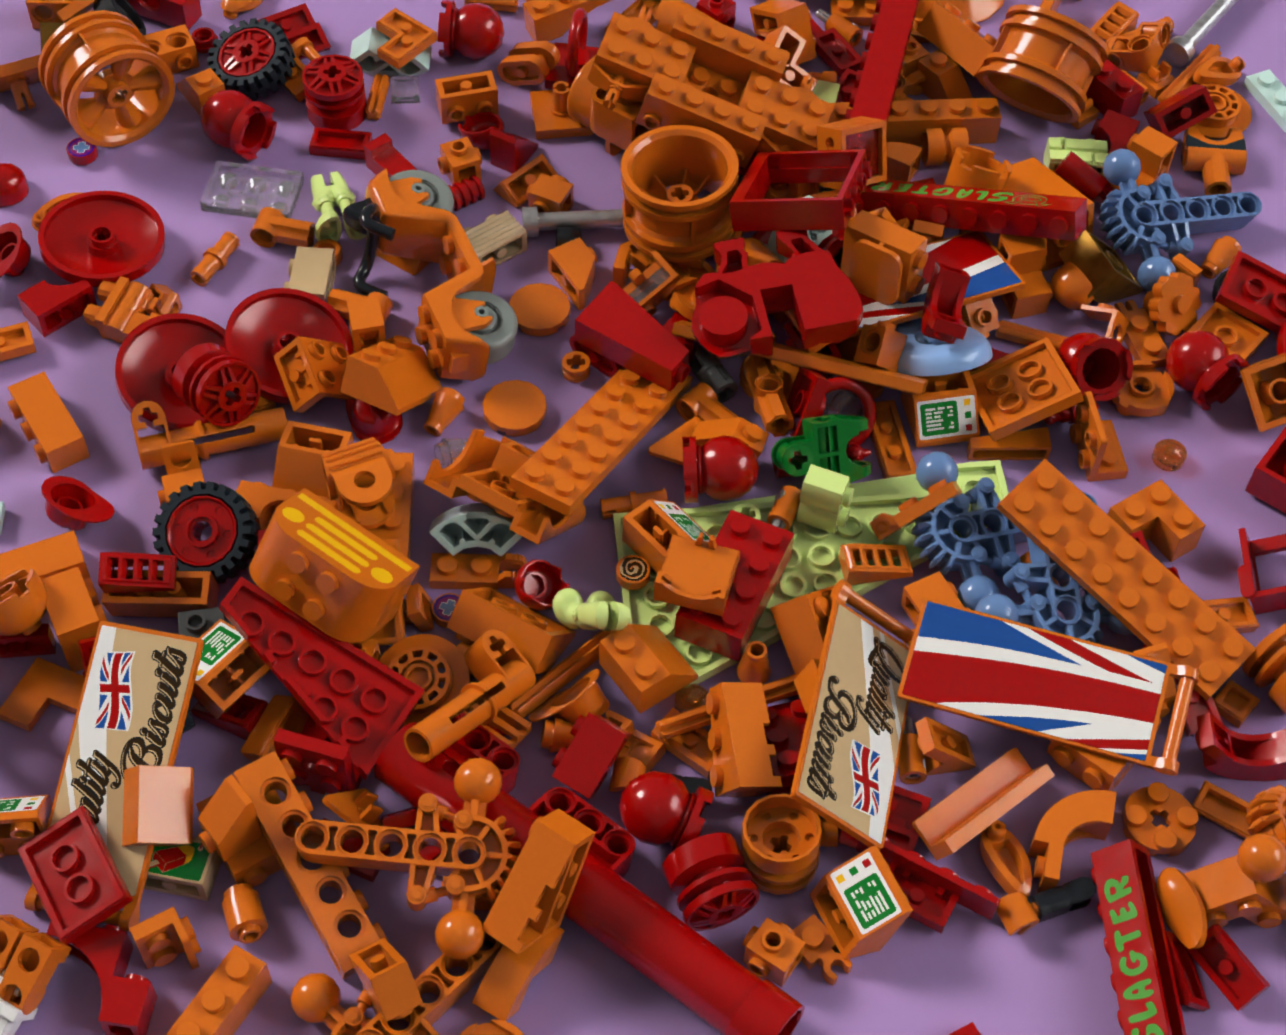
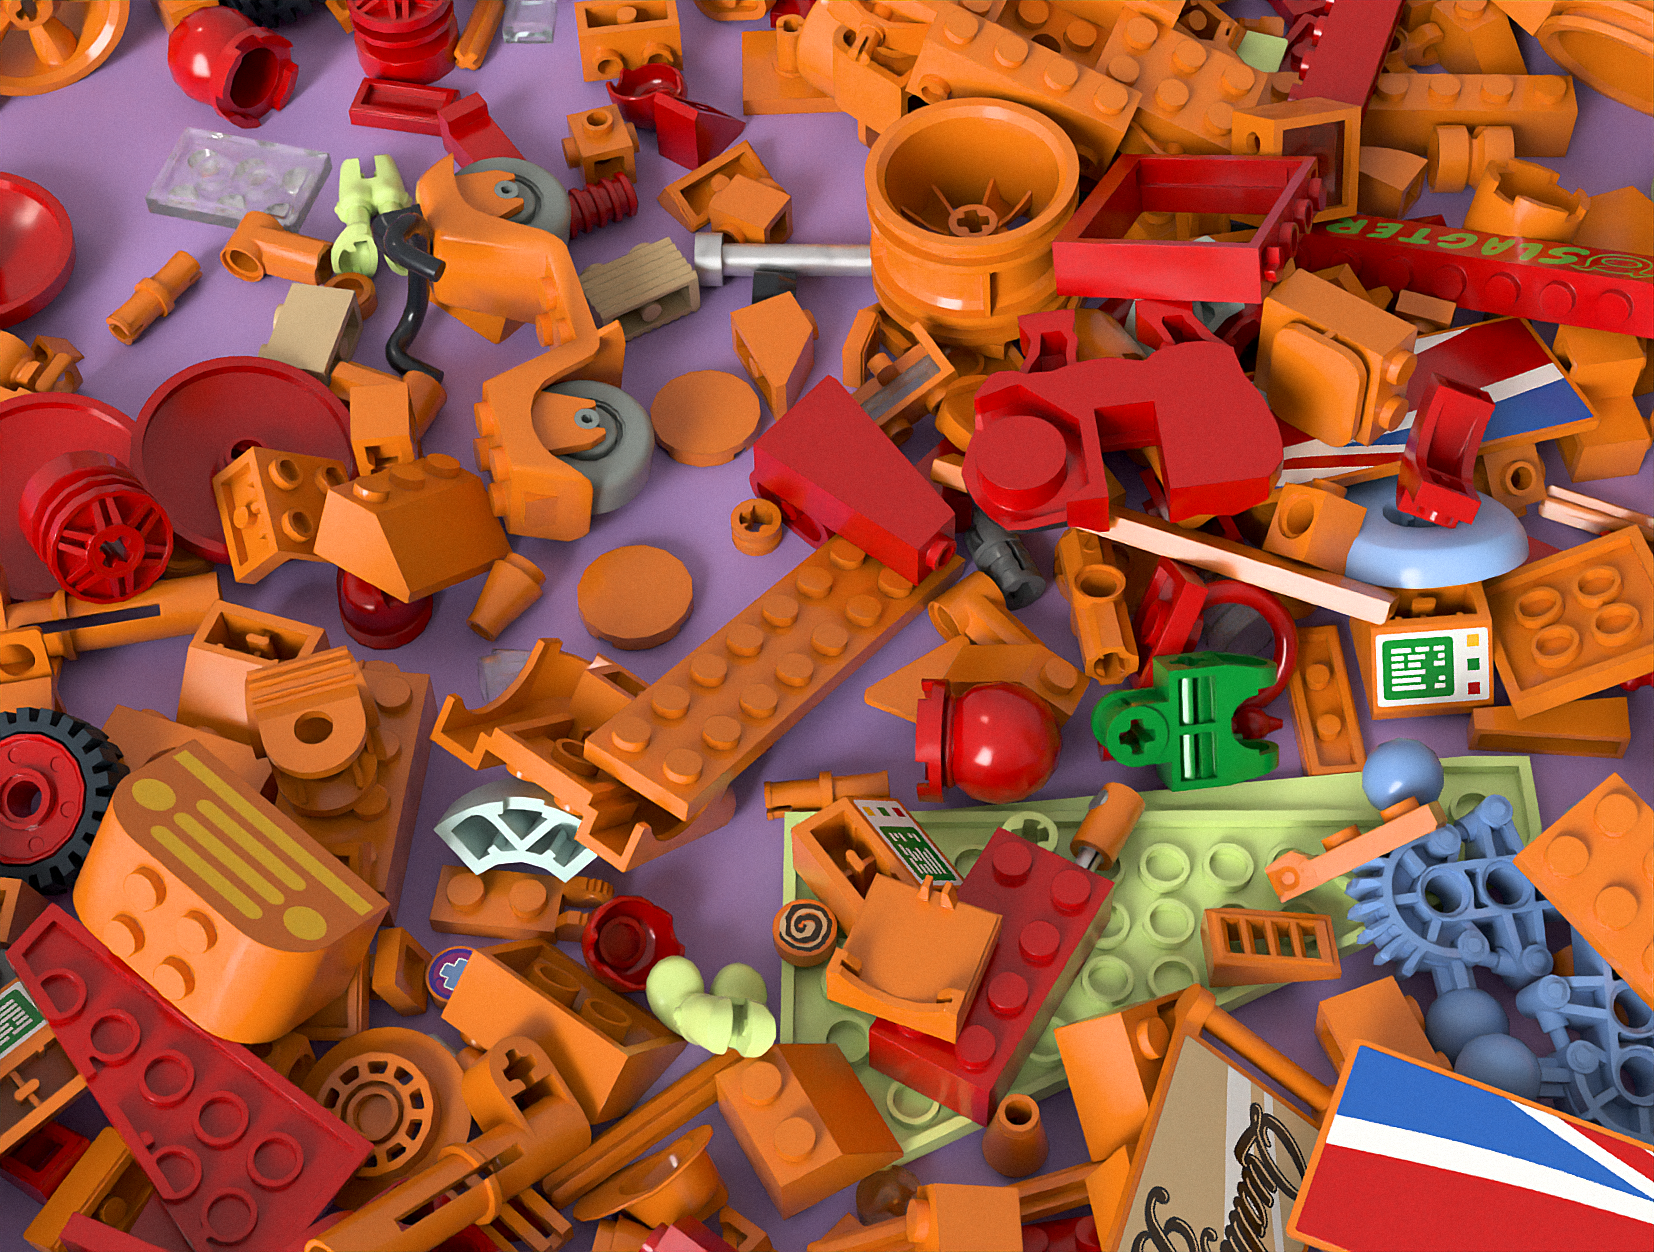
camera: 10 degrees right, 0 degrees up
(824, 499) = (1181, 817): yellowish green brick -> none

